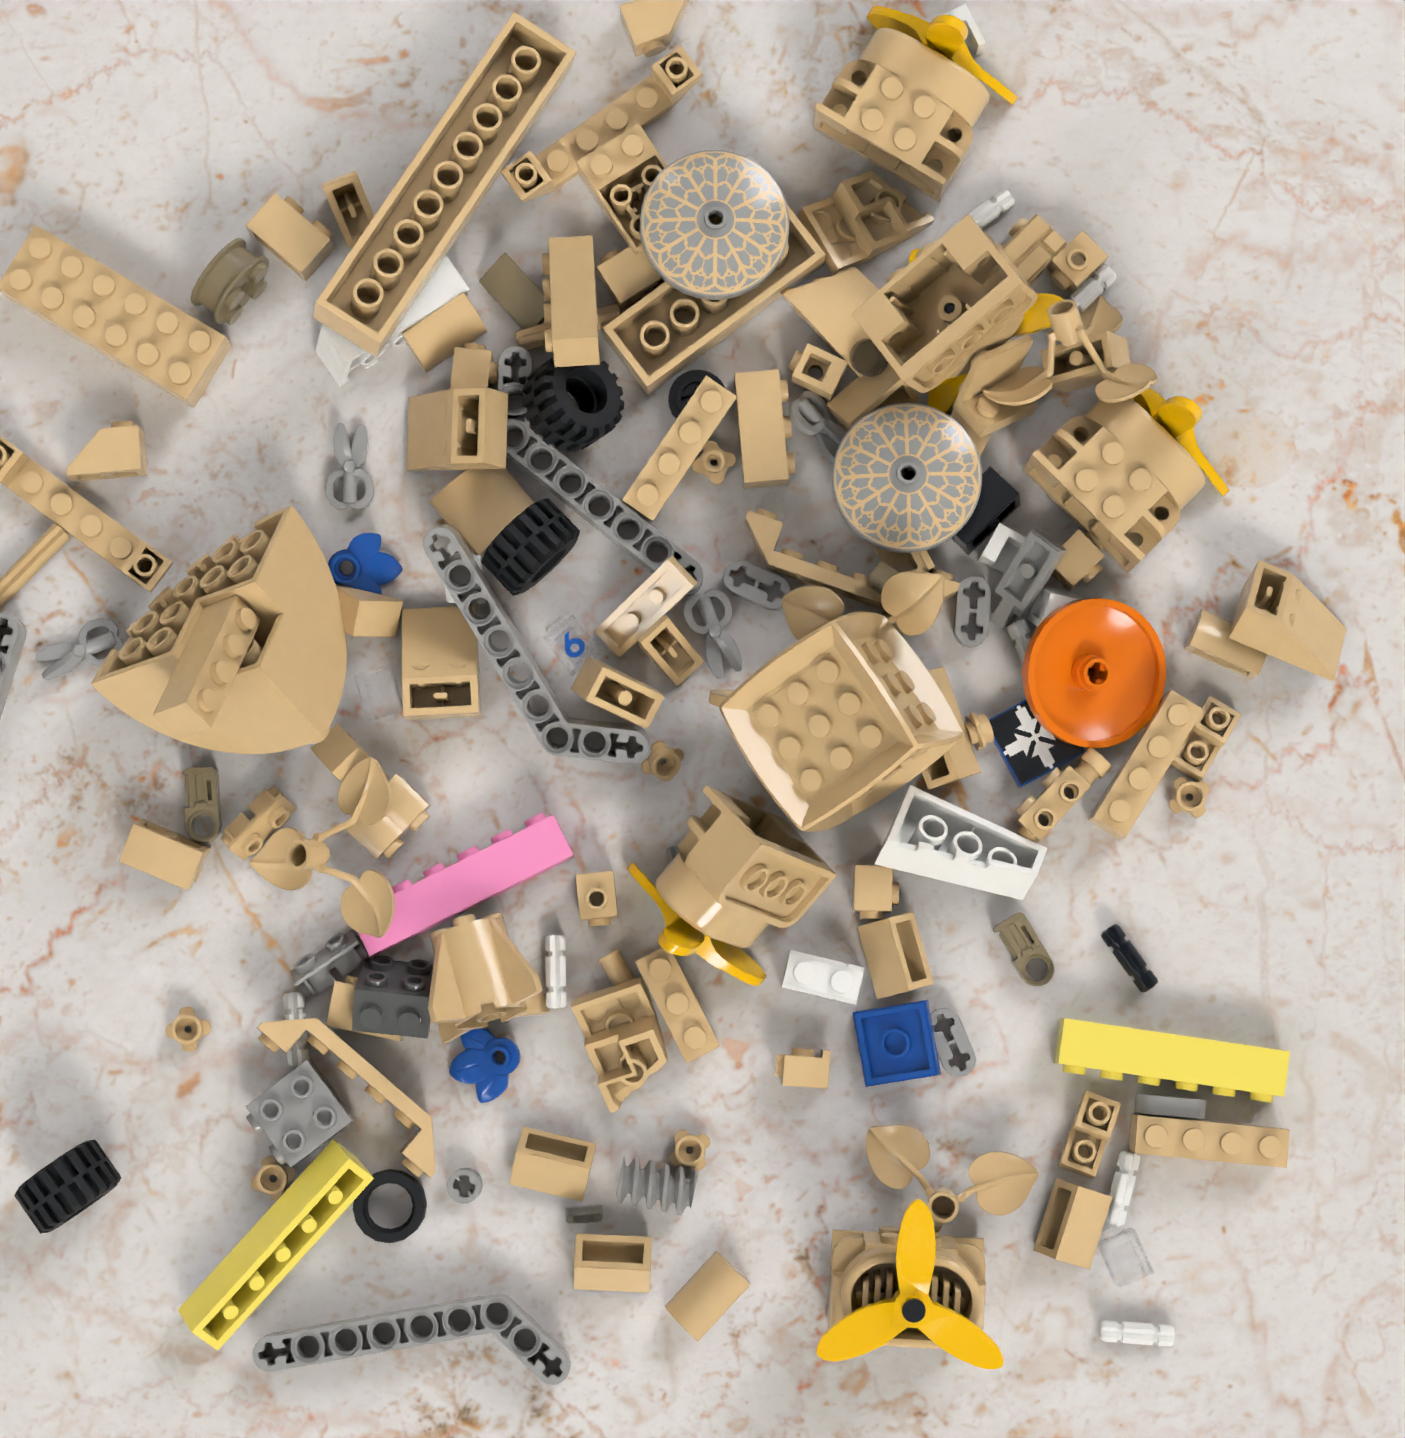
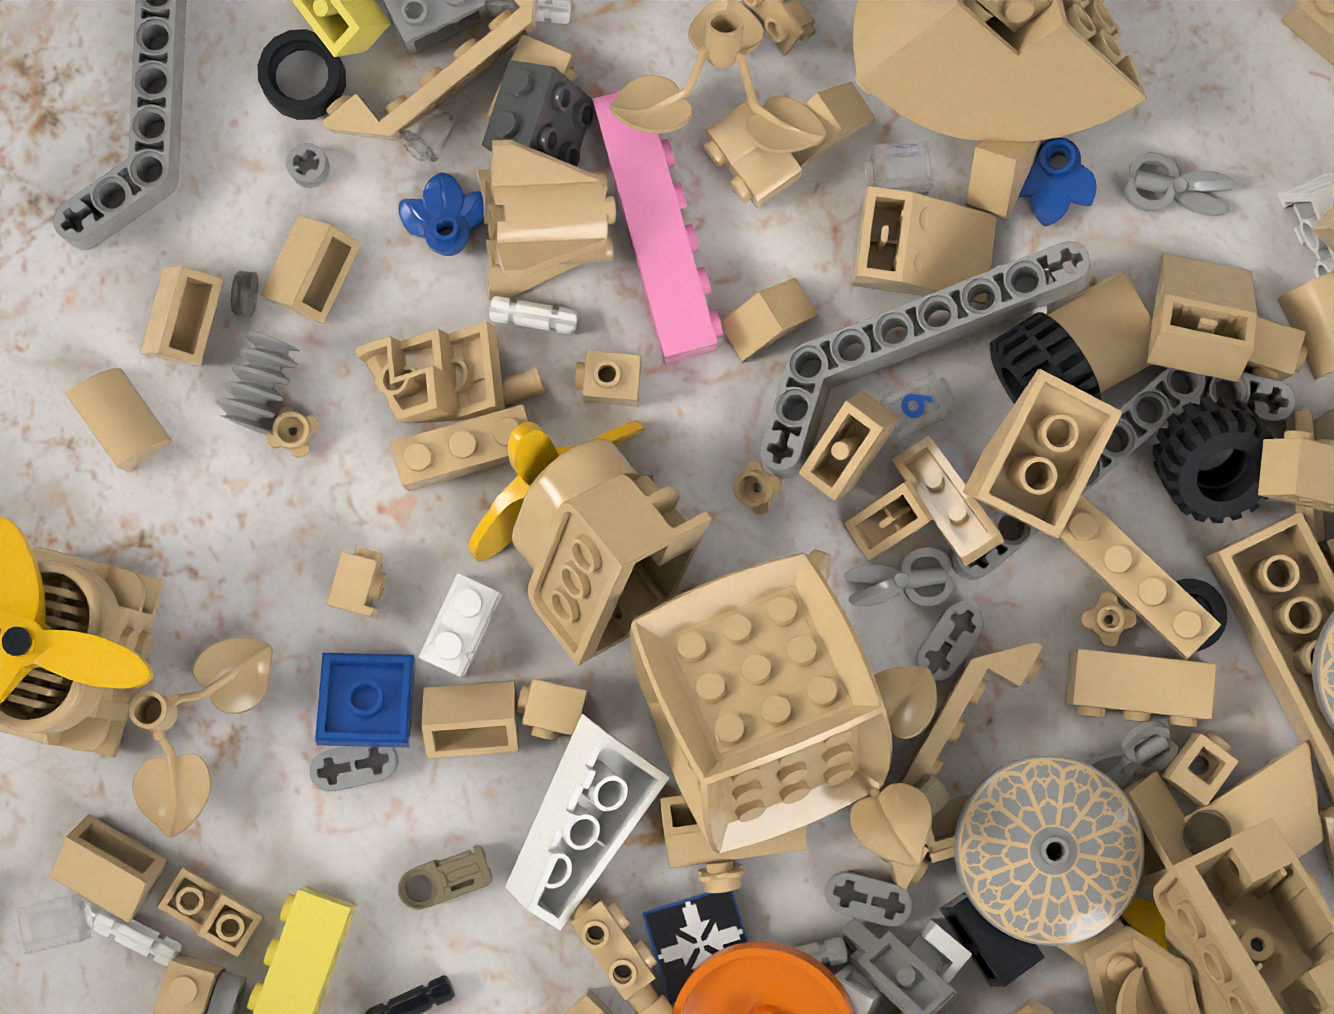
camera: 105 degrees right, 0 degrees up
(338, 953) = (589, 39): light grey hinge -> none
(421, 1087) = (429, 135): none -> clear cone
(522, 778) = (767, 318): none -> tan slope
(600, 537) = (1043, 454): none -> tan slope

